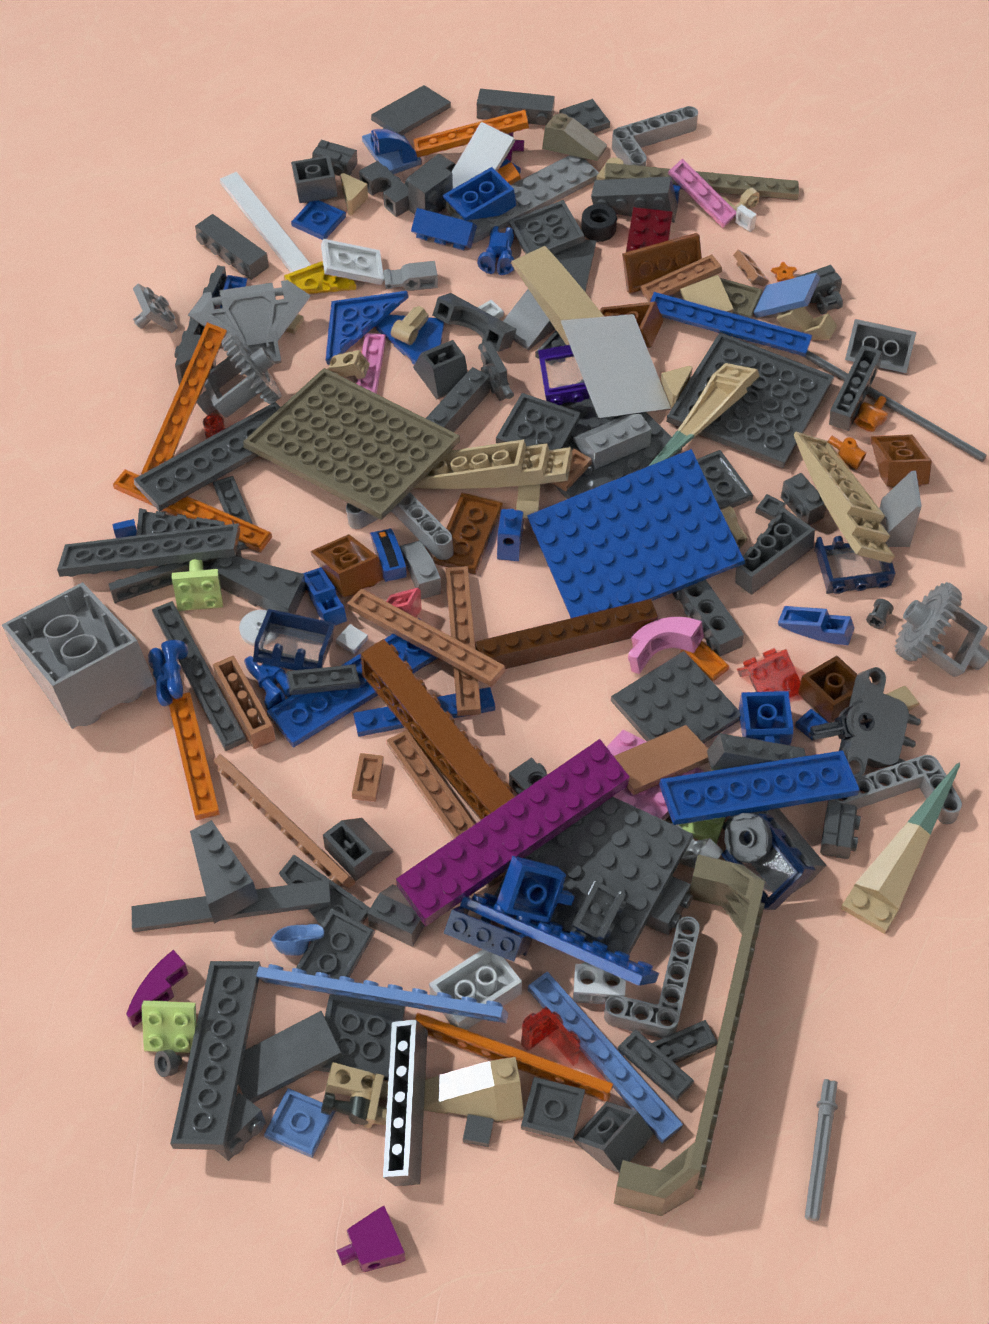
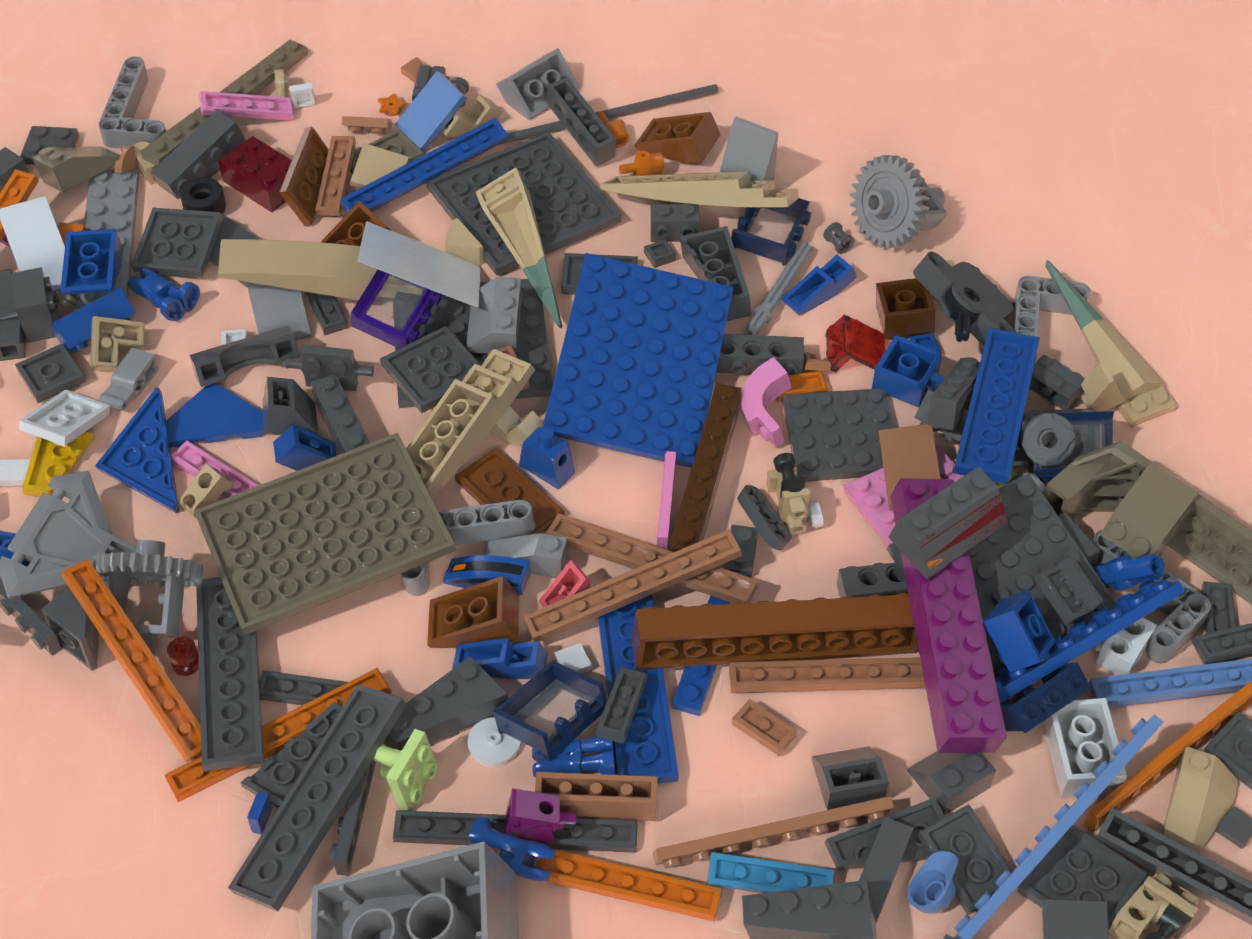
camera: 60 degrees left, 5 degrees down
(200, 672) = (536, 816): none -> magenta torso
(243, 834) = (763, 875): none -> dark azure plate
(387, 235) = (50, 373): none -> dark grey plate
(408, 328) = (203, 413): tan piece -> none
(418, 396) = (302, 448): none -> blue slope
(433, 242) = (106, 338): none -> tan brick
(517, 694) = (746, 539): none -> dark grey plate
(541, 617) = (666, 500): none -> bright pink tile
(545, 695) = (764, 517): none -> dark grey beam
(550, 1024) = (1175, 700): clear red bracket -> none
(574, 788) = (950, 523): none -> dark grey slope
(580, 723) = (815, 515): none -> white tile
(582, 696) = (790, 492): none -> tan hips
(596, 161) = (127, 159): none -> nougat tile
(654, 948) = (1127, 571): none -> blue piece
(709, 936) = (1150, 512): none -> dark tan slope
(732, 656) = (813, 363): none -> nougat tile
(794, 599) = (764, 312): none -> light grey axle
(838, 264) = (411, 68): none -> nougat tile
(847, 863) = (1101, 389): none -> tan slope

